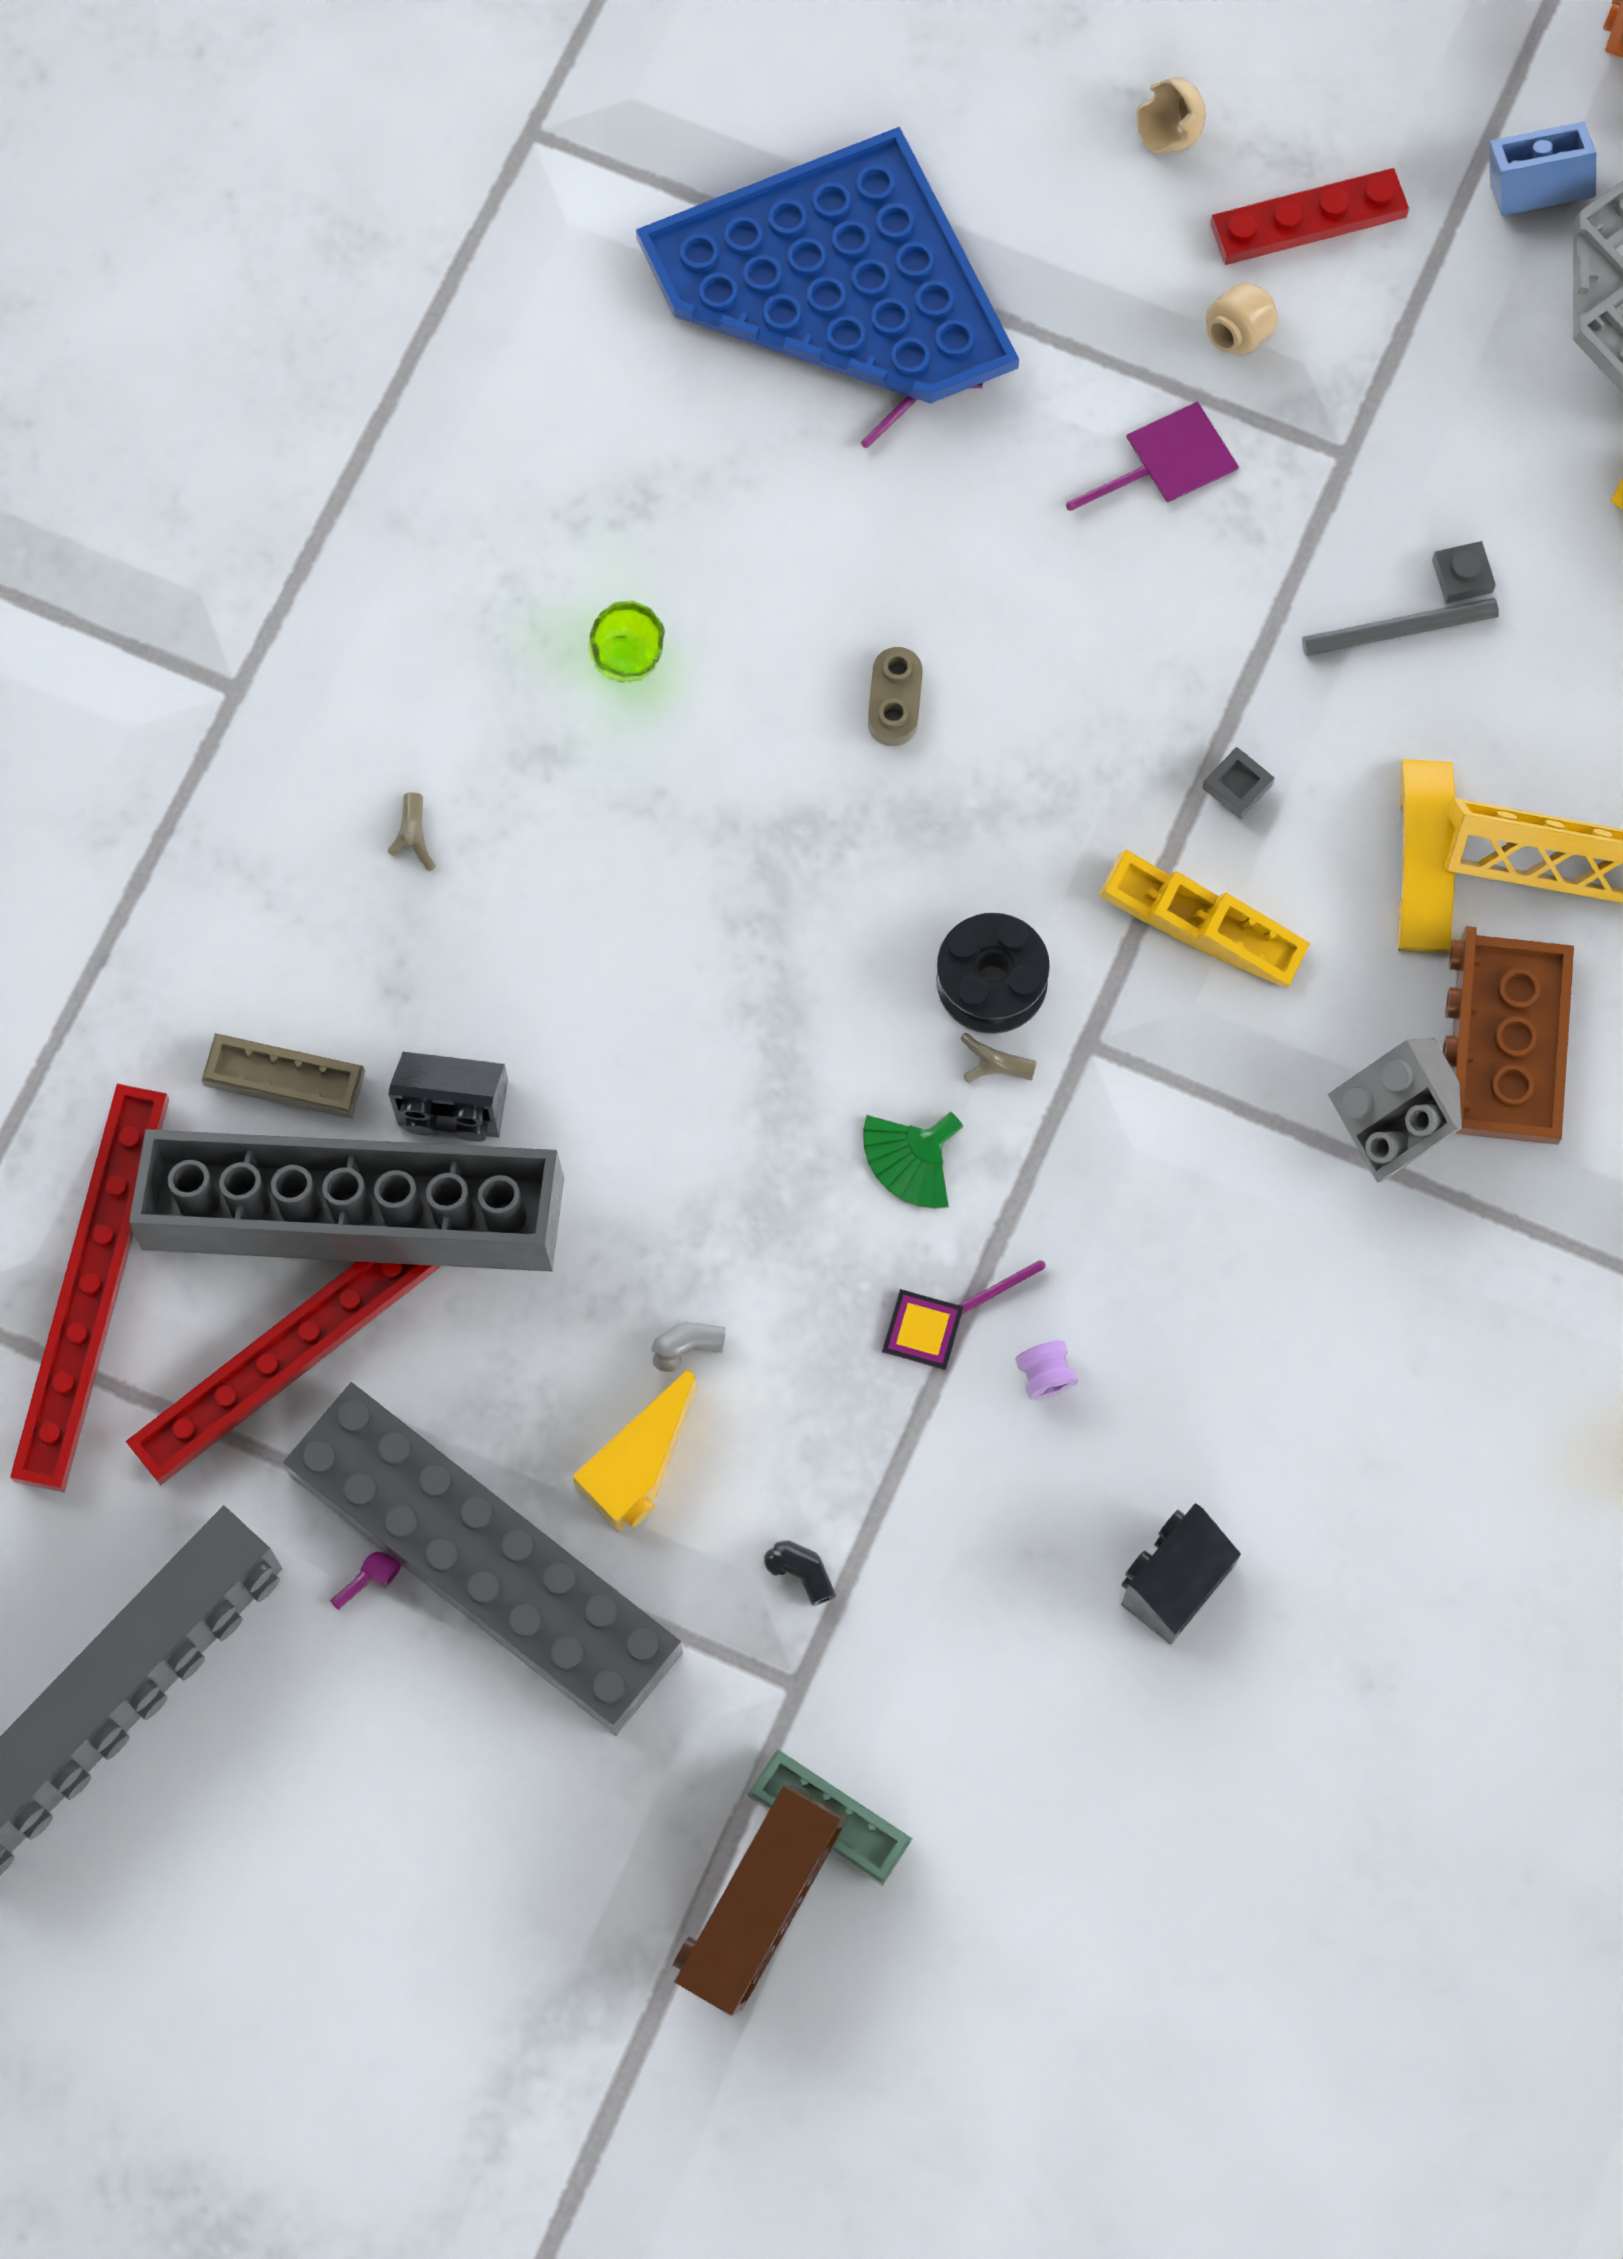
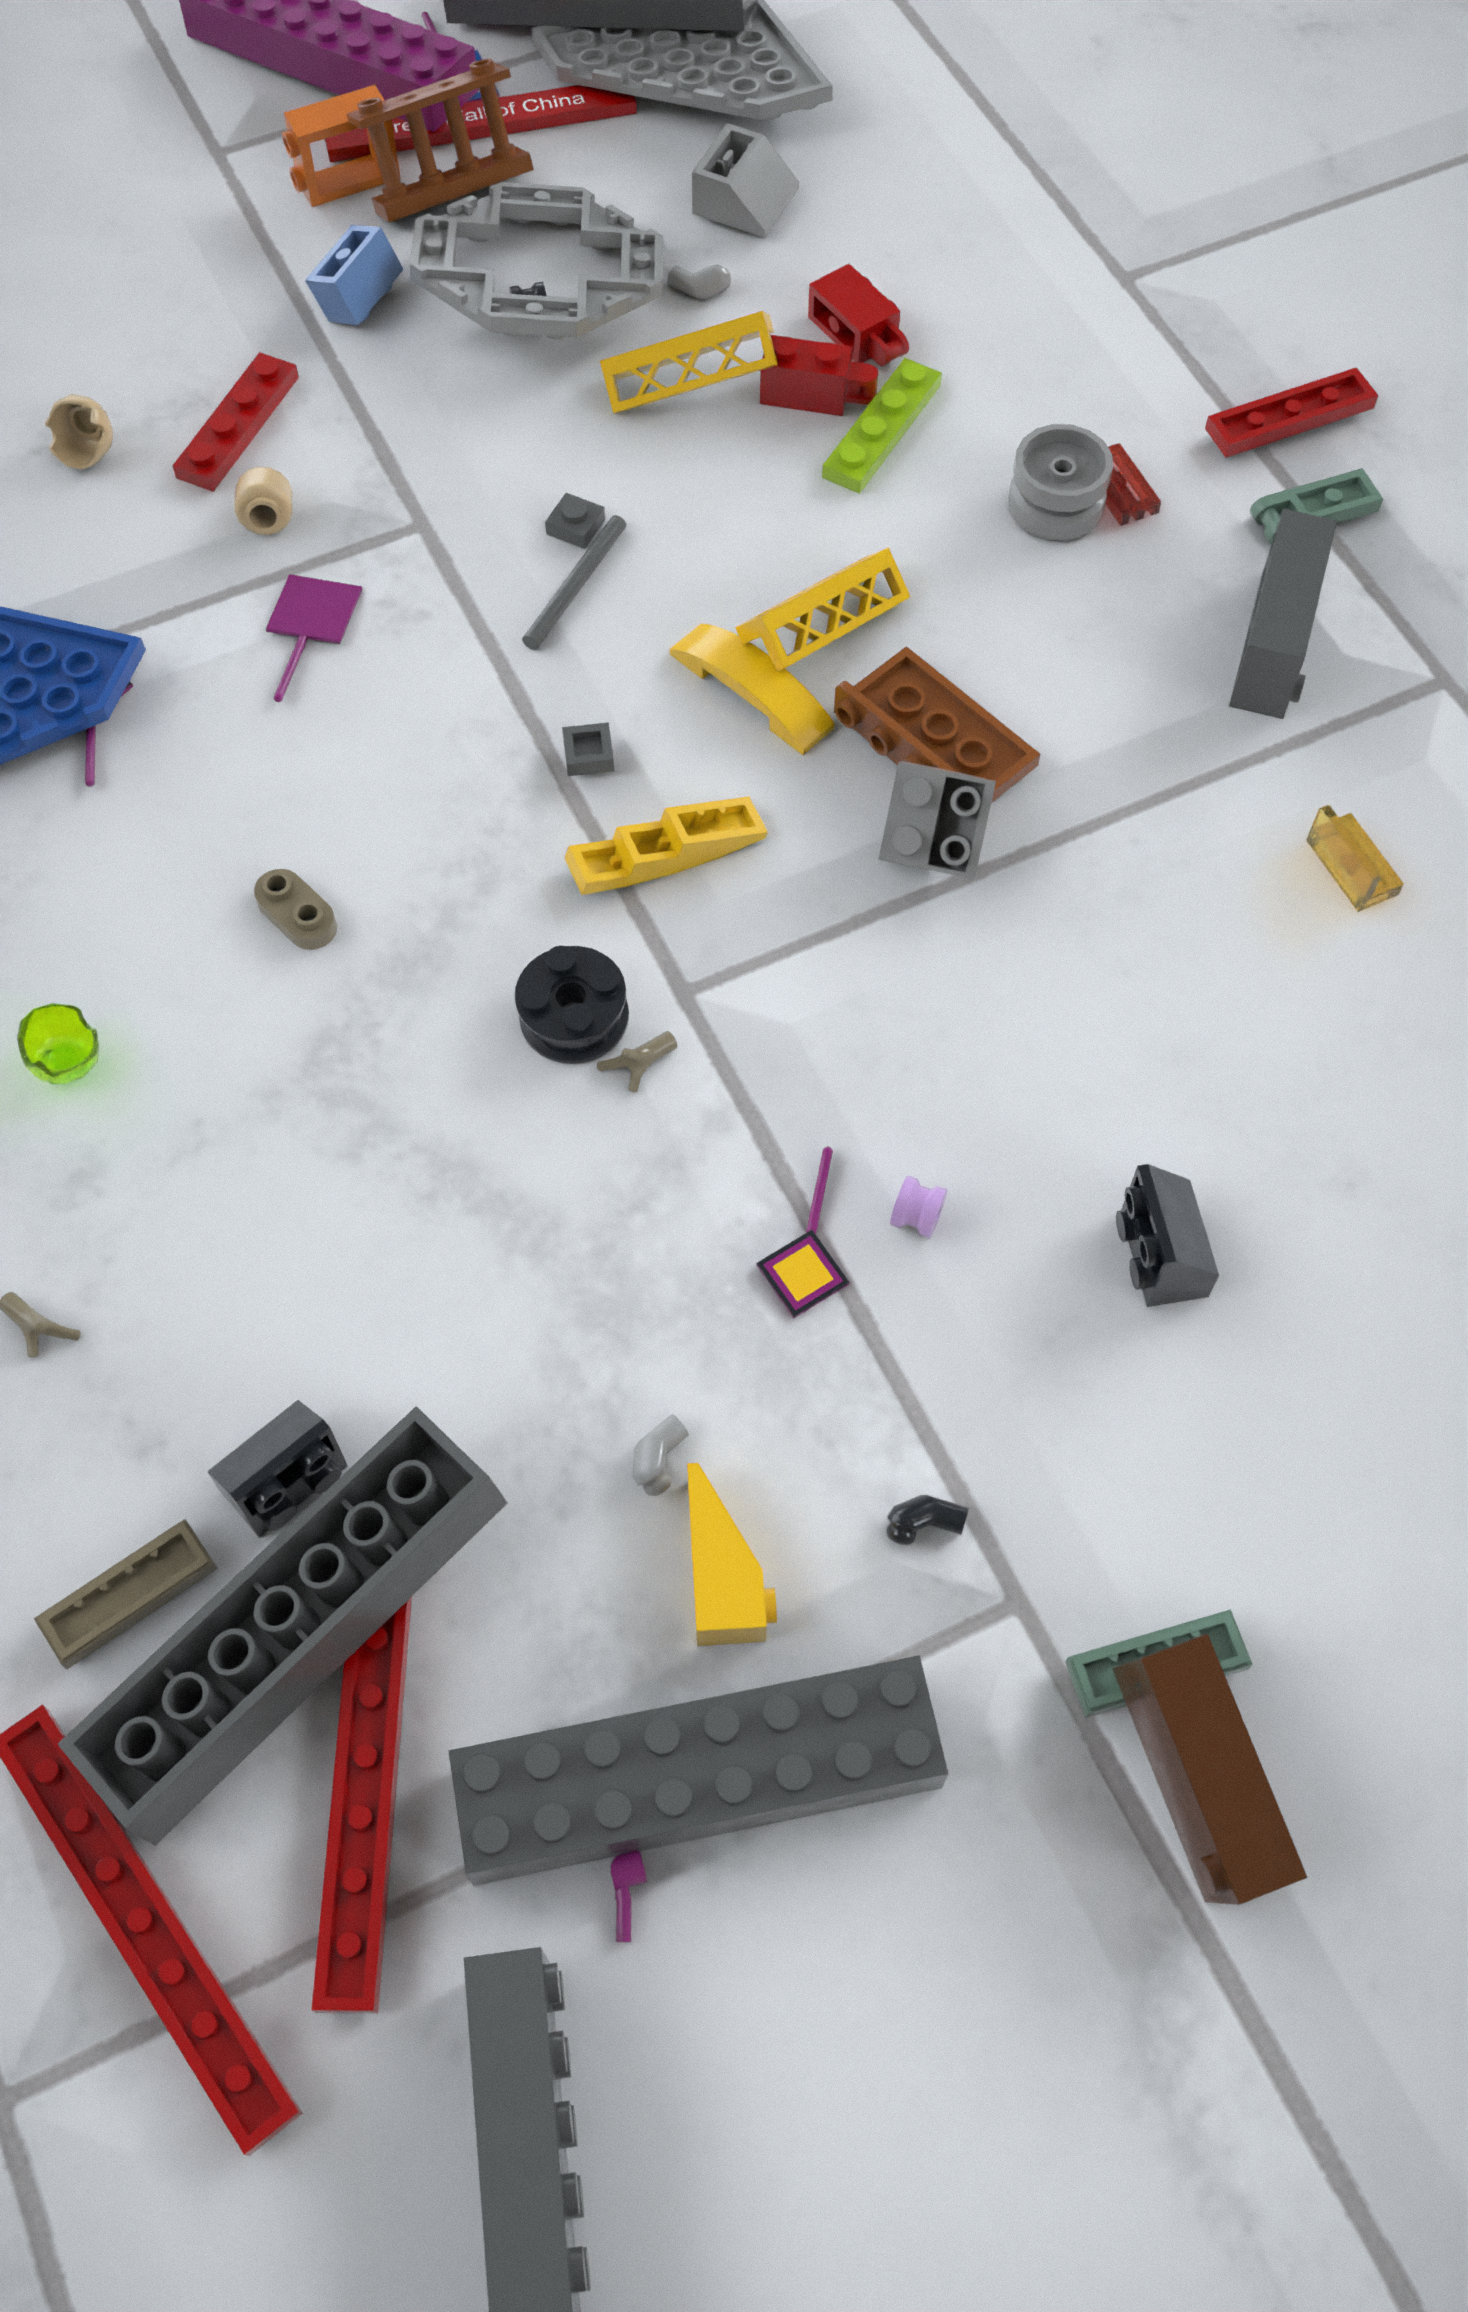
camera: 50 degrees left, 10 degrees down
(910, 1158) = (658, 1175): green hand -> none

